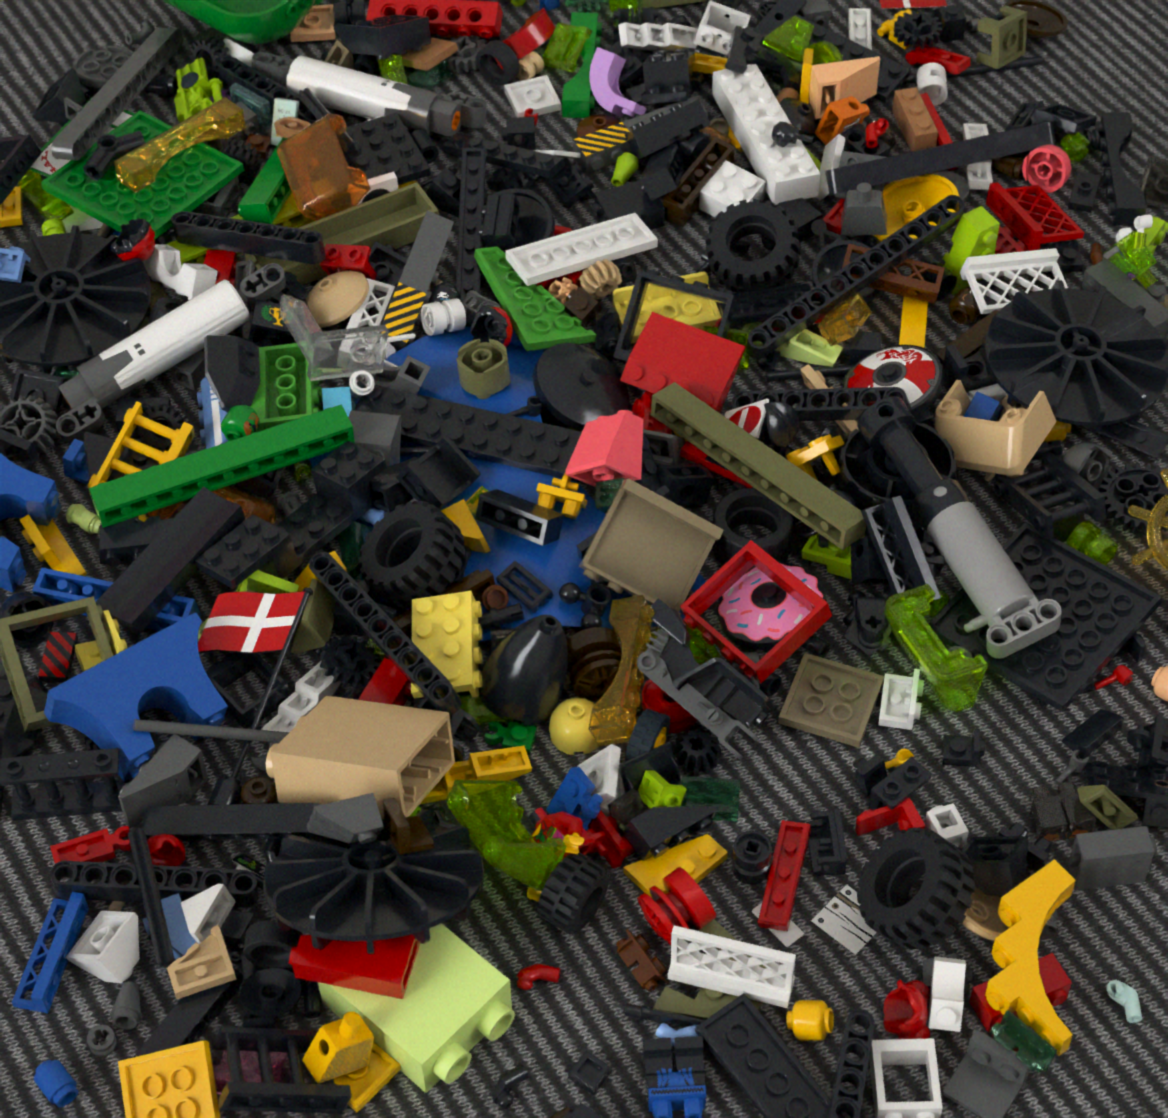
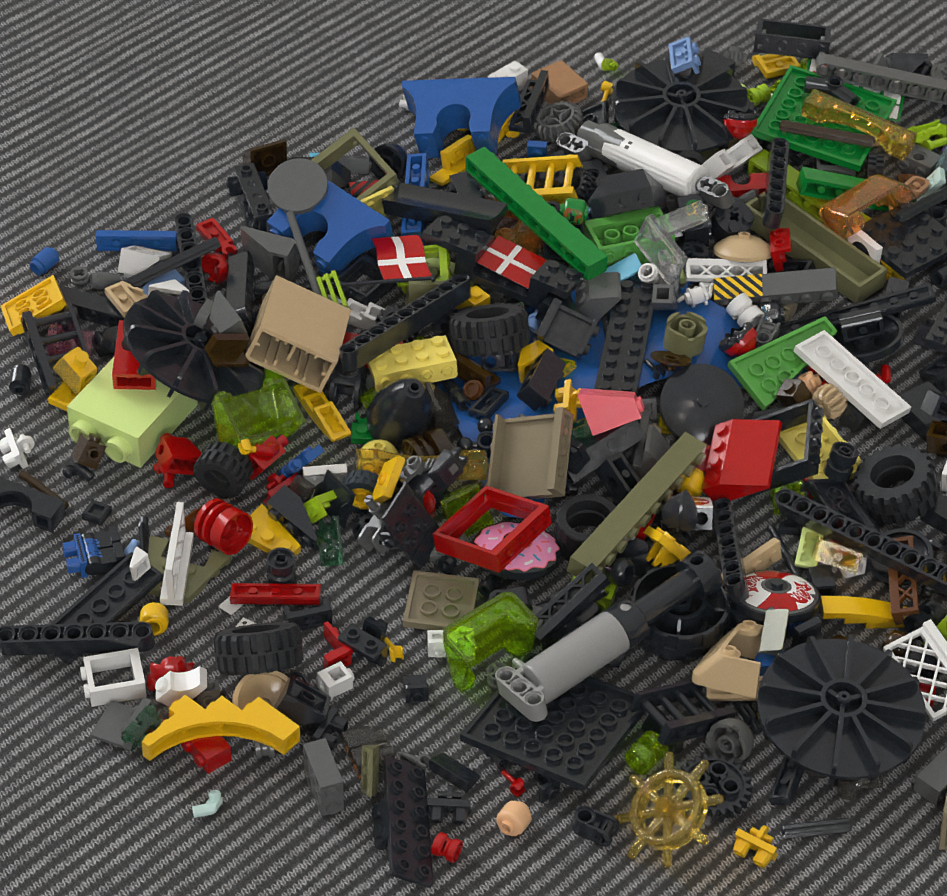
camera: 75 degrees right, 5 degrees down
(96, 700) = (297, 186): none -> dark grey tile
(181, 176) = (827, 133): none -> dark brown axle
(277, 706) = (327, 277): none -> lime tile
(297, 507) = (511, 261): none -> red sticker
(334, 841) = (203, 315): none -> dark grey beam
(402, 348) = (696, 295): none -> white brick
(492, 1058) = (88, 450): none -> dark brown brick
(520, 388) = (670, 359): none -> dark brown dish
(520, 949) = (177, 454): none -> red torso
(677, 692) = (388, 479): none -> yellow plate
(711, 274) = (841, 461): none -> black wheel
(733, 1014) = (139, 563): none -> white slope
(965, 383) = (774, 631): none -> slope

